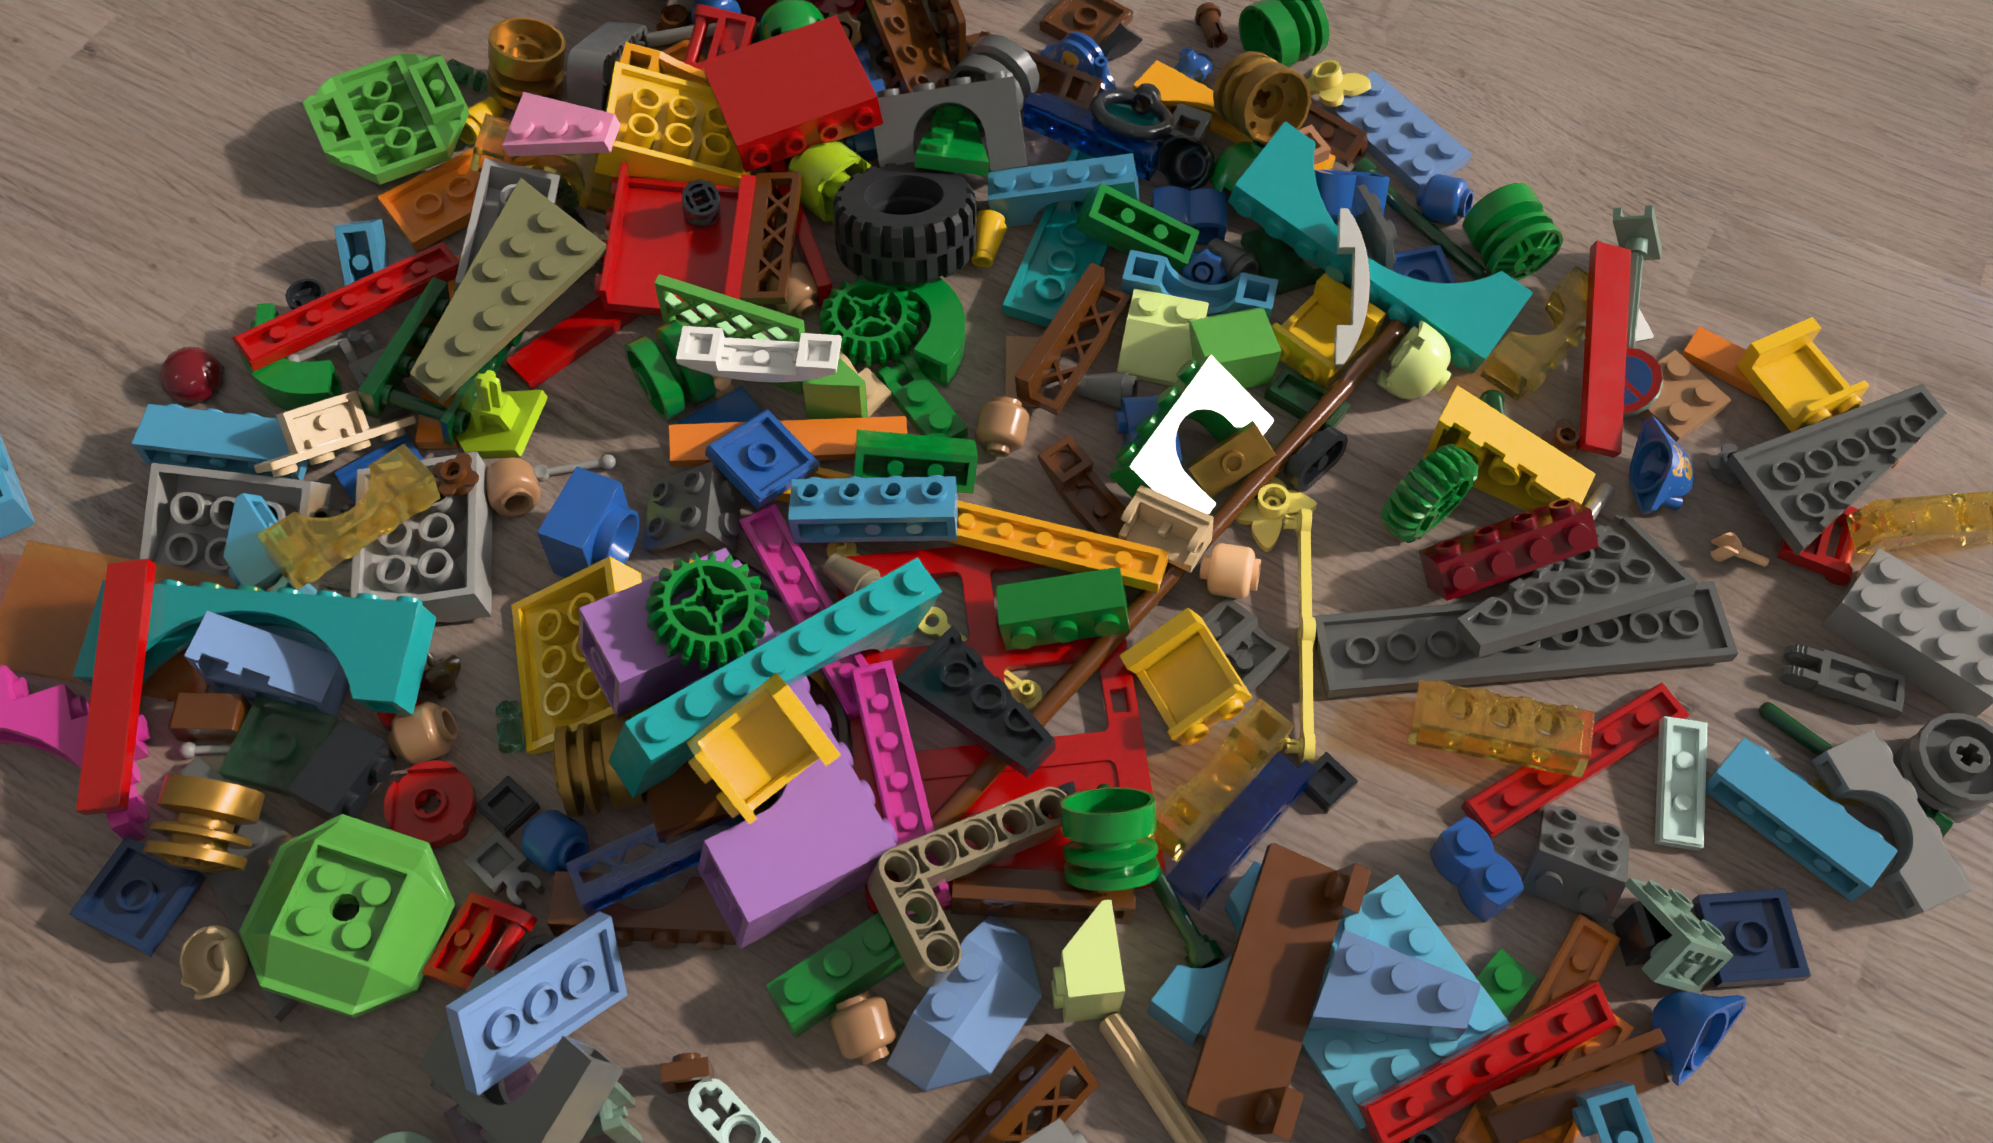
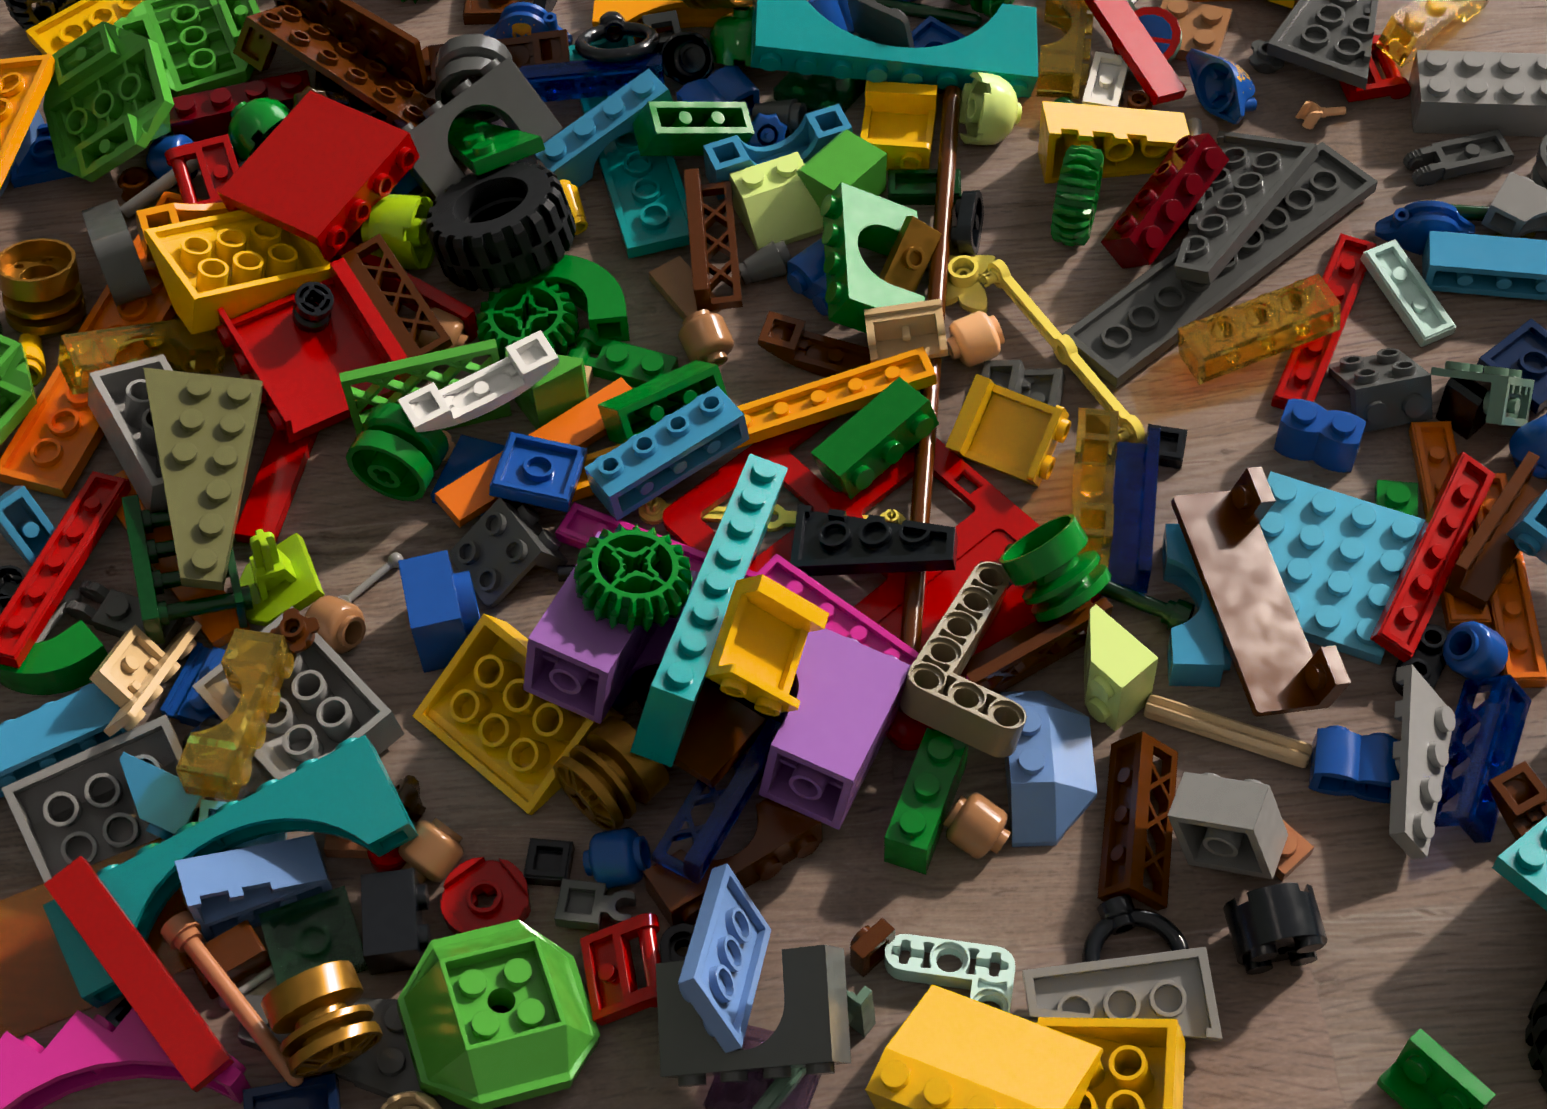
camera: 30 degrees left, 5 degrees down
(181, 679) = (184, 934): none -> nougat piece
(510, 729) = (499, 805): clear green piece -> none
(558, 127) = (143, 309): bright pink wing -> none
(849, 574) = (691, 517): dark tan cone -> none
(1351, 242) = (879, 38): white slope -> none
(1391, 993) = (1335, 544): medium blue wedge -> none
(1548, 402) = (1106, 80): none -> white plate
(1755, 720) = (1414, 221): none -> blue hat

